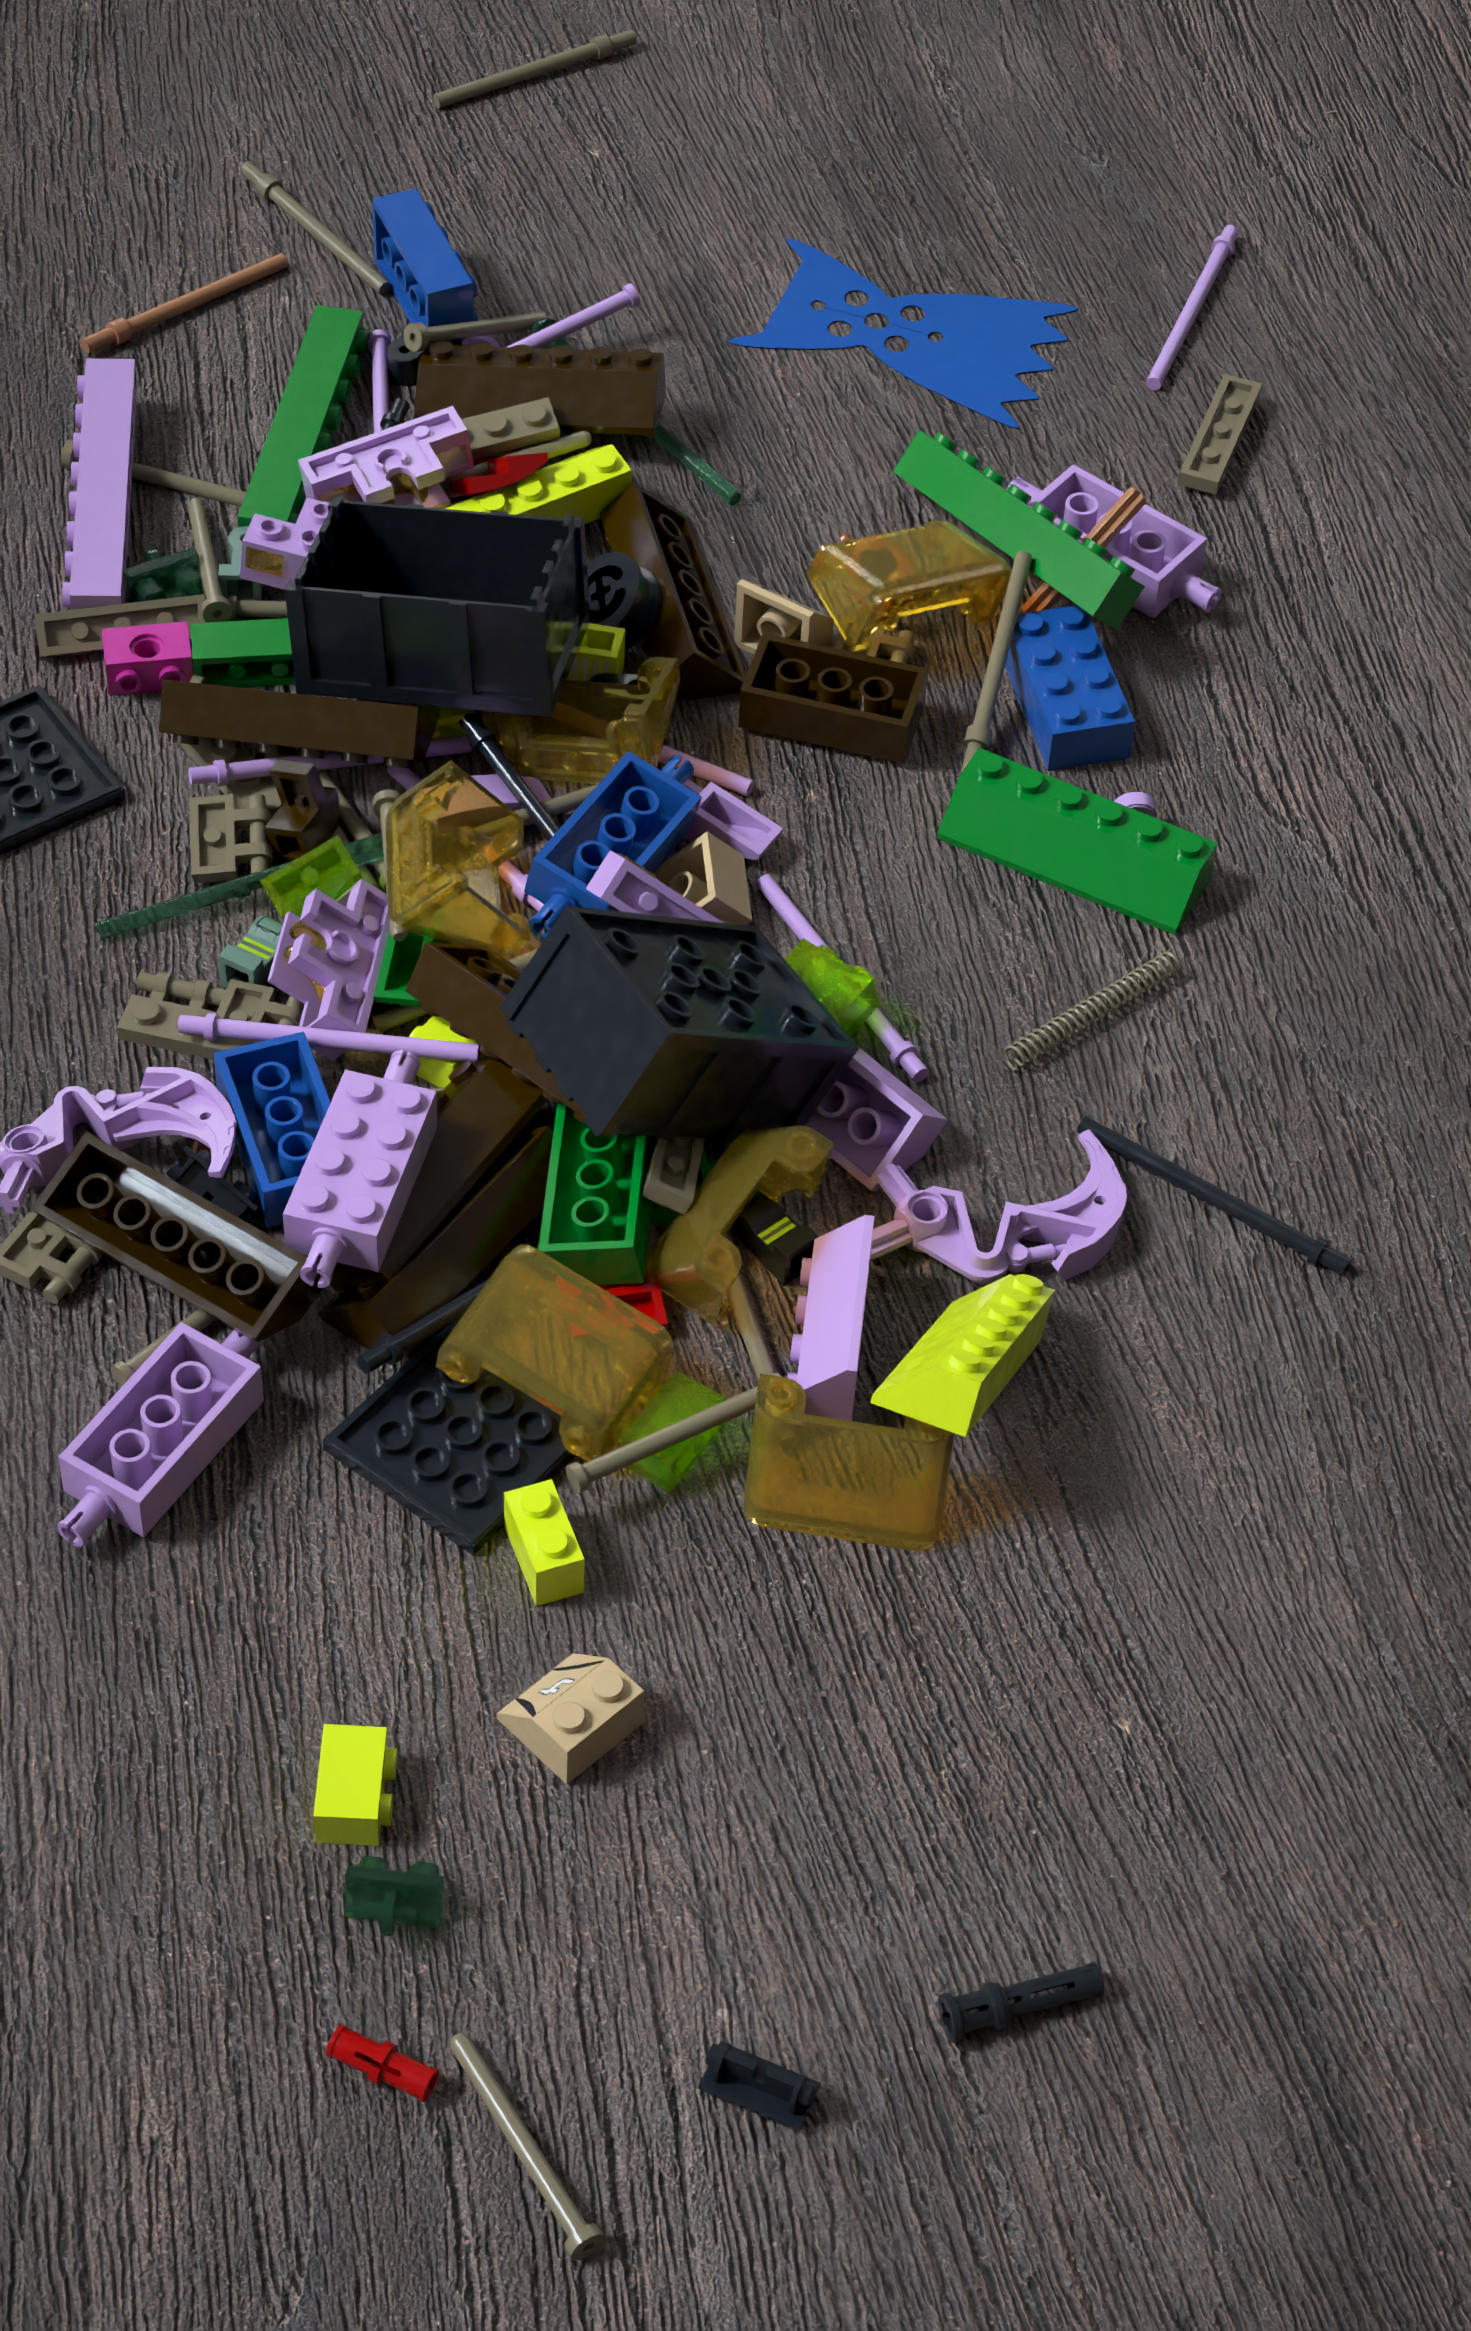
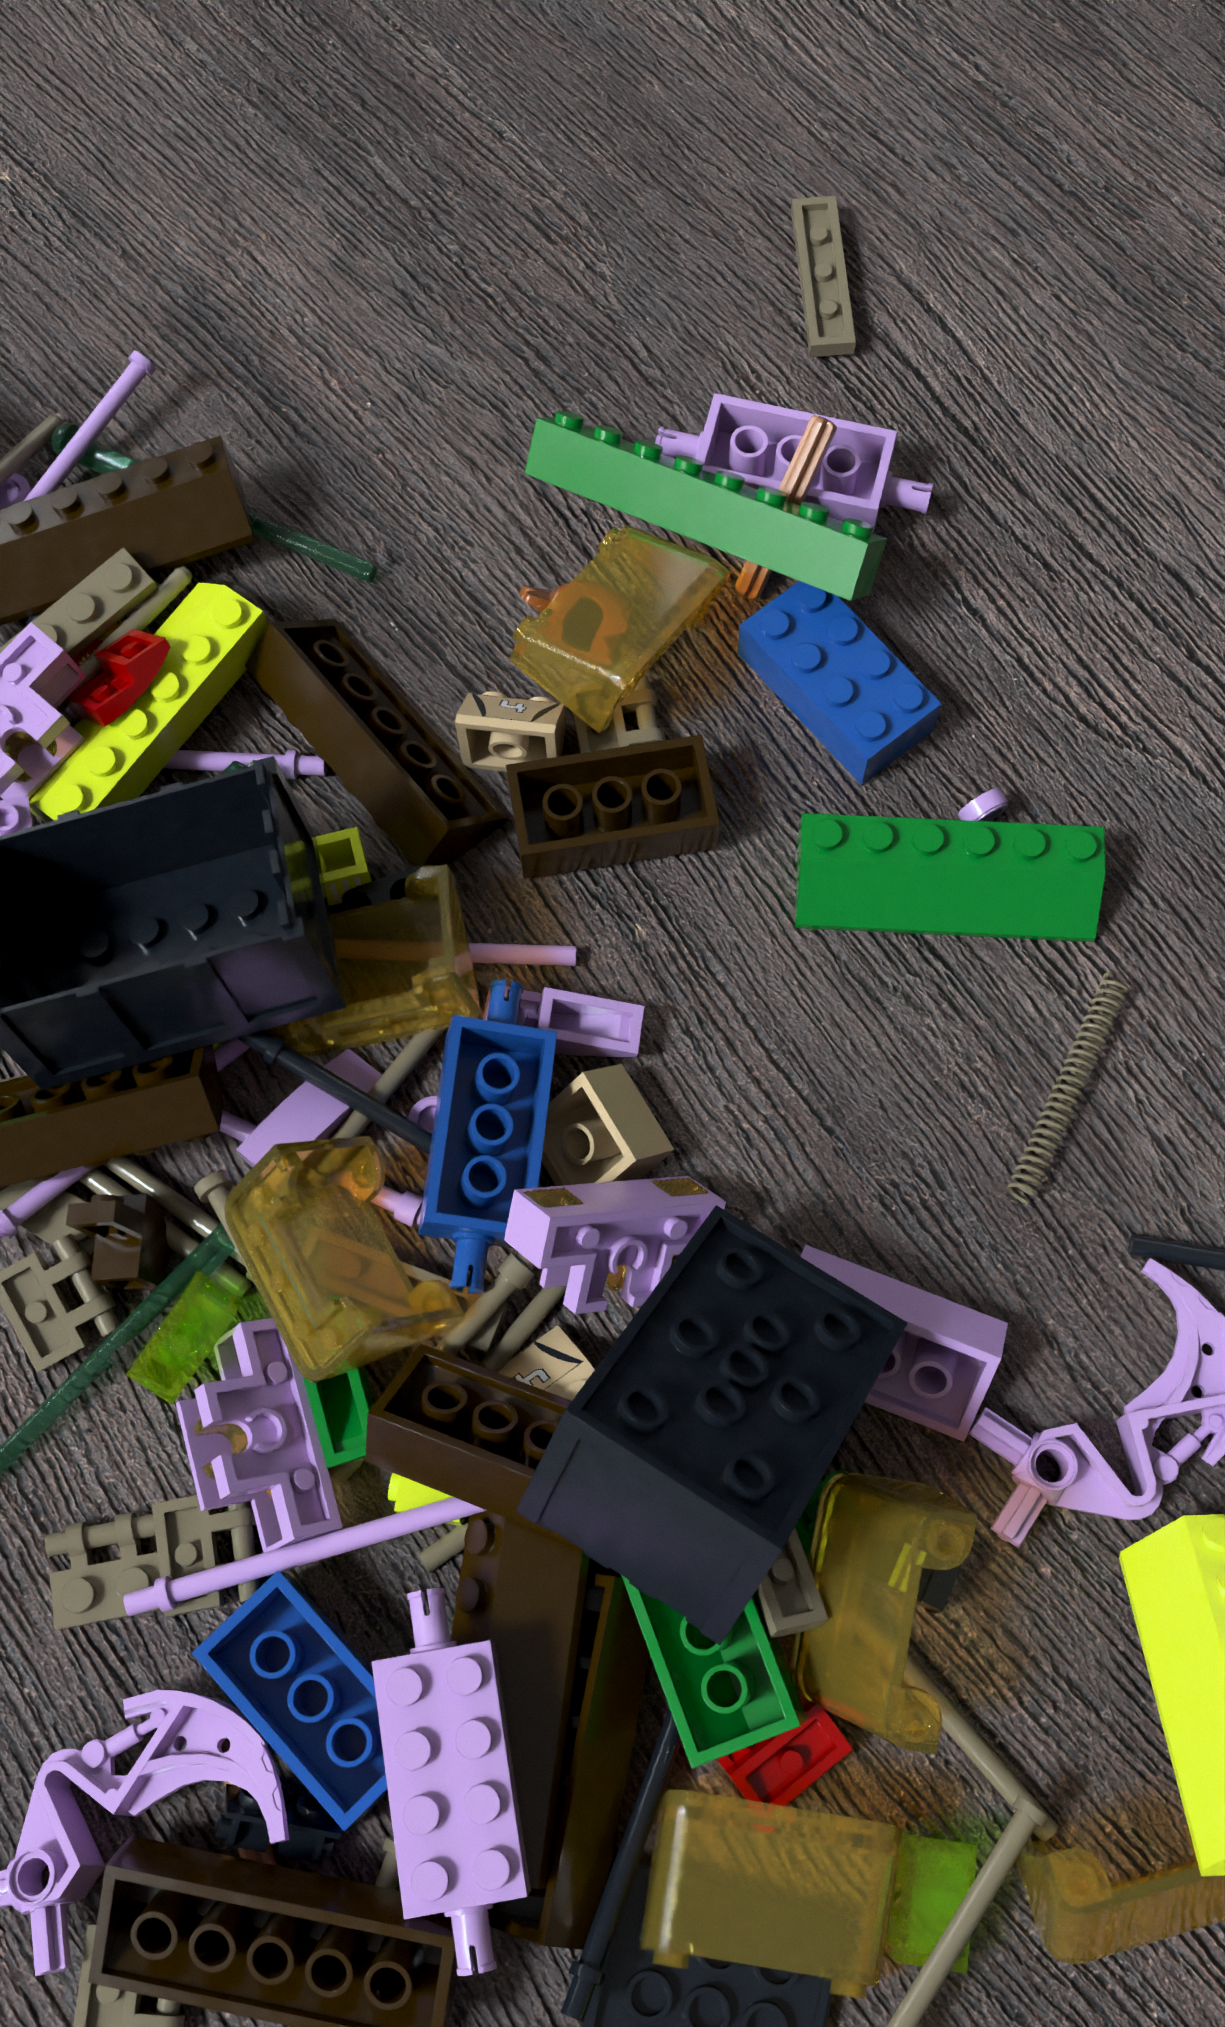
camera: 20 degrees left, 20 degrees up
(252, 954) = (162, 1457): sand green leg -> none
(623, 595) = (344, 782): black wheel -> none
(832, 1318) = (1035, 1677): lavender slope -> none
(842, 989) = (795, 1206): clear neon green brick -> none
(902, 1052) = (904, 1238): lavender bar -> none
(974, 362) = (519, 296): blue piece -> none
(979, 734) = (780, 783): dark tan bar -> none
(1222, 248) = (704, 36): lavender bar -> none

